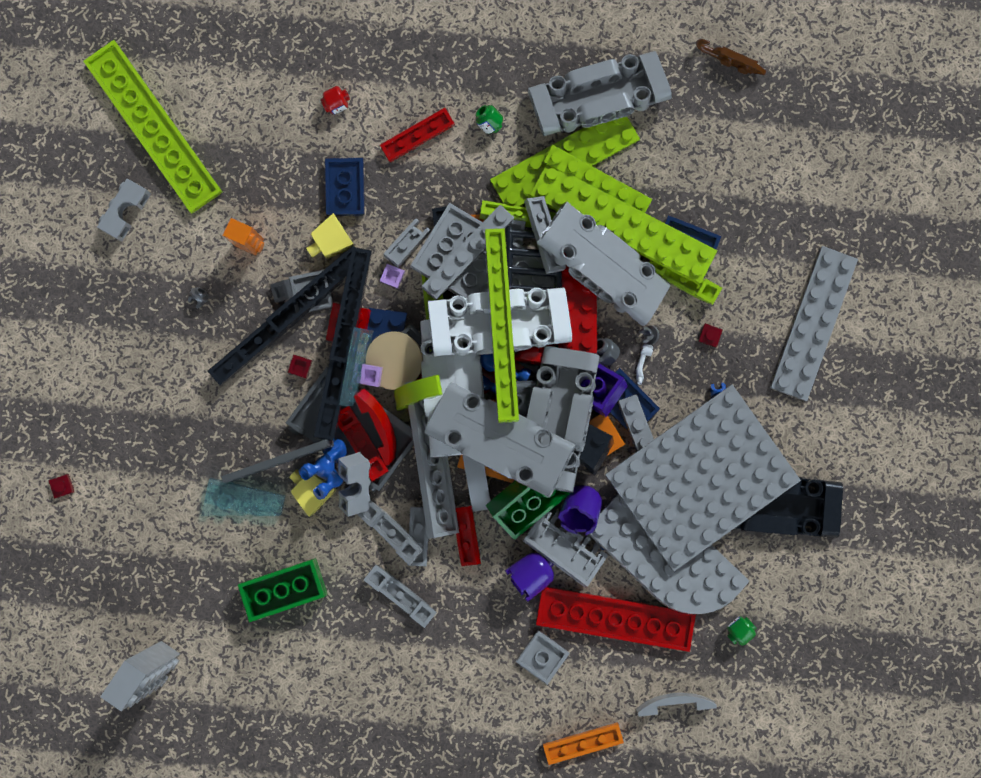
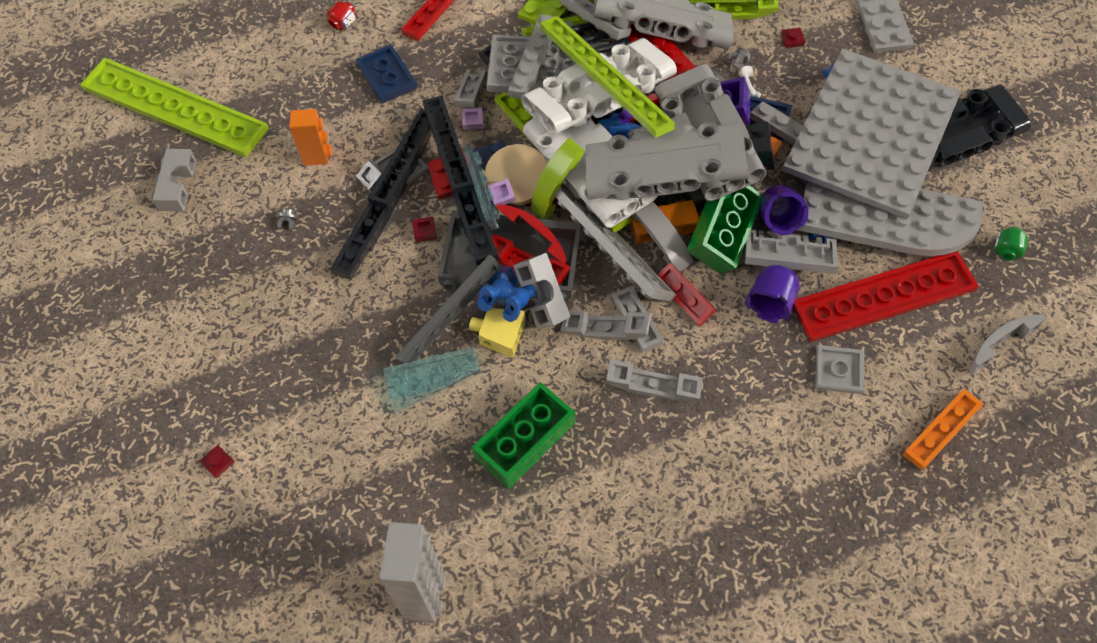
camera: 25 degrees left, 25 degrees down
(329, 239) = (395, 114): light yellow torso -> none

